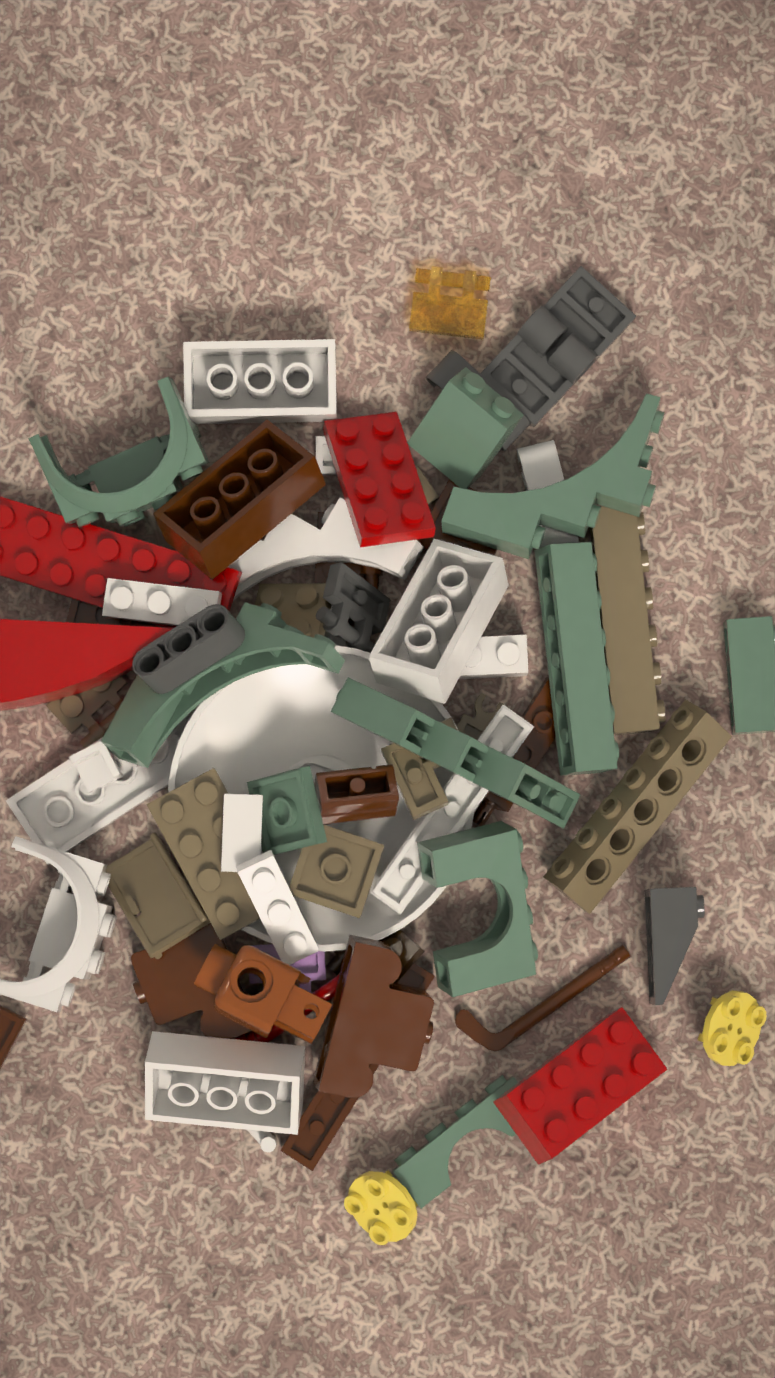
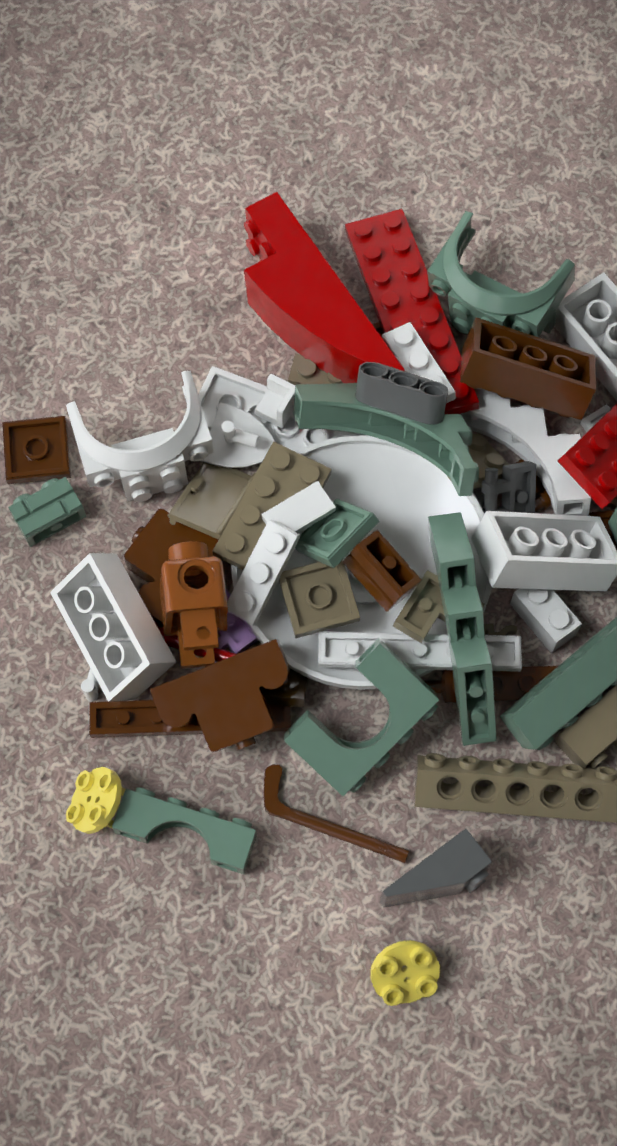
camera: 55 degrees right, 15 degrees down
(50, 1067) = (47, 510): none -> sand green brick
(105, 827) = (237, 438): none -> white shield
(580, 1085) = (283, 881): red brick -> none

